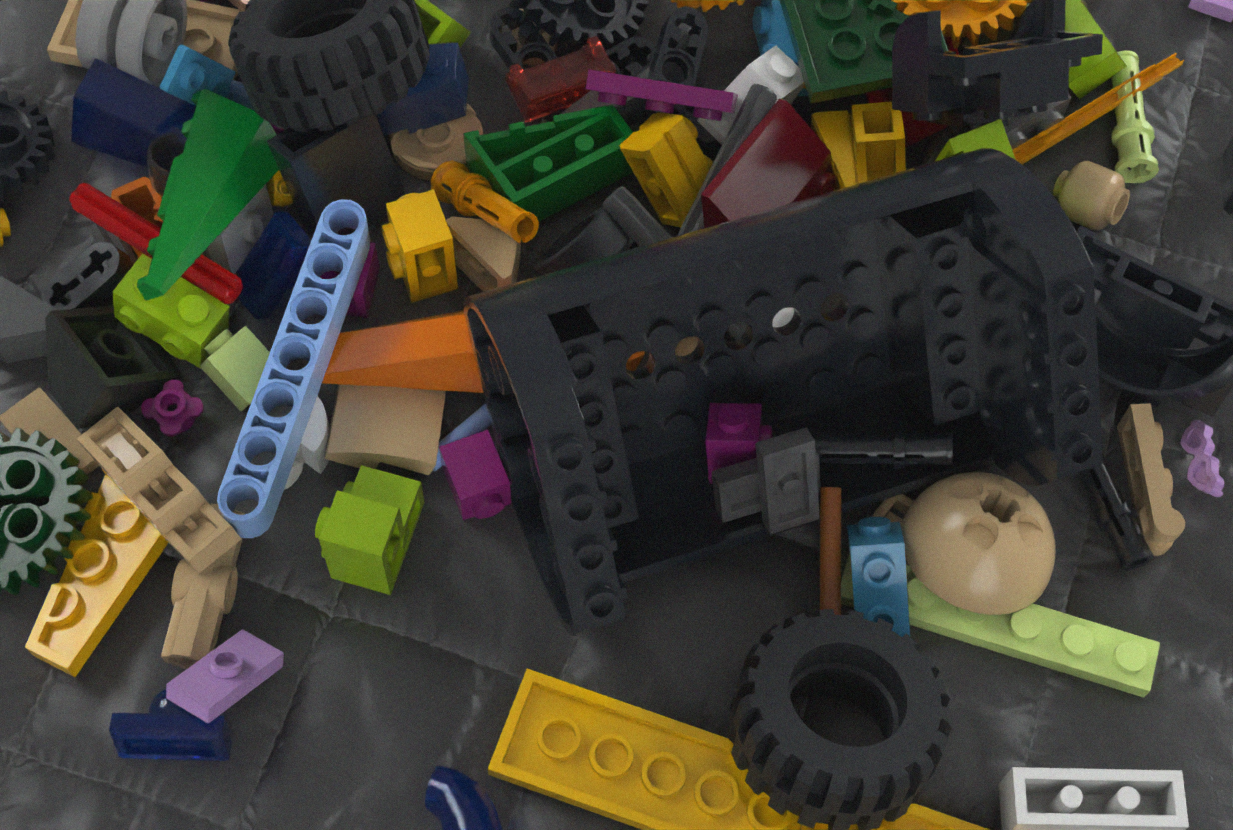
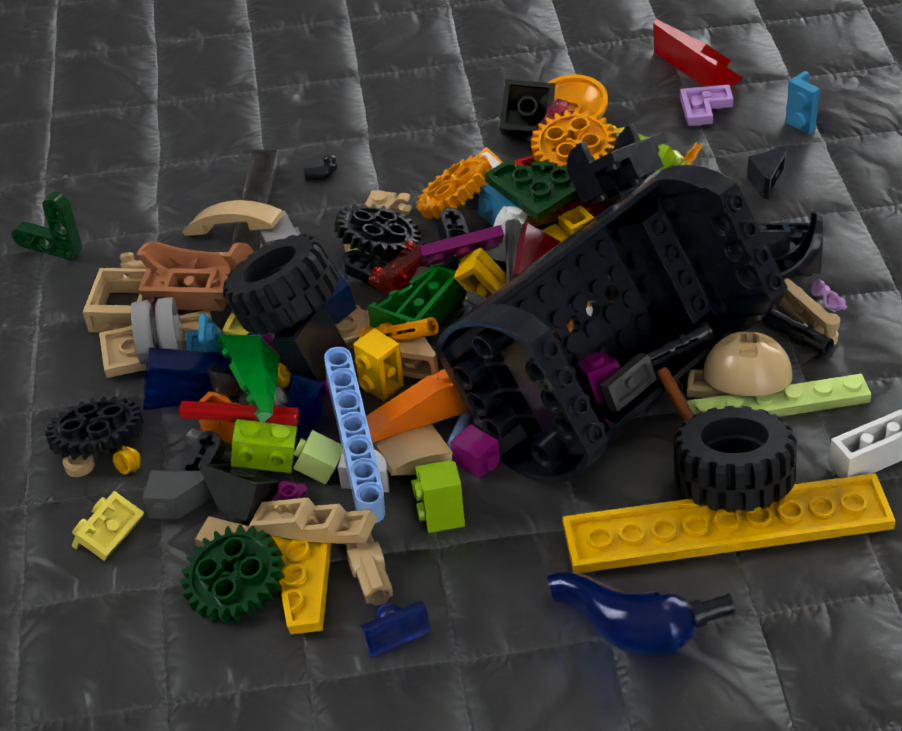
camera: 20 degrees left, 20 degrees down
(224, 676) = (407, 587): lavender plate -> none
(788, 480) = (641, 369): flat silver plate -> none
(879, 572) = (705, 392): dark azure bracket -> none

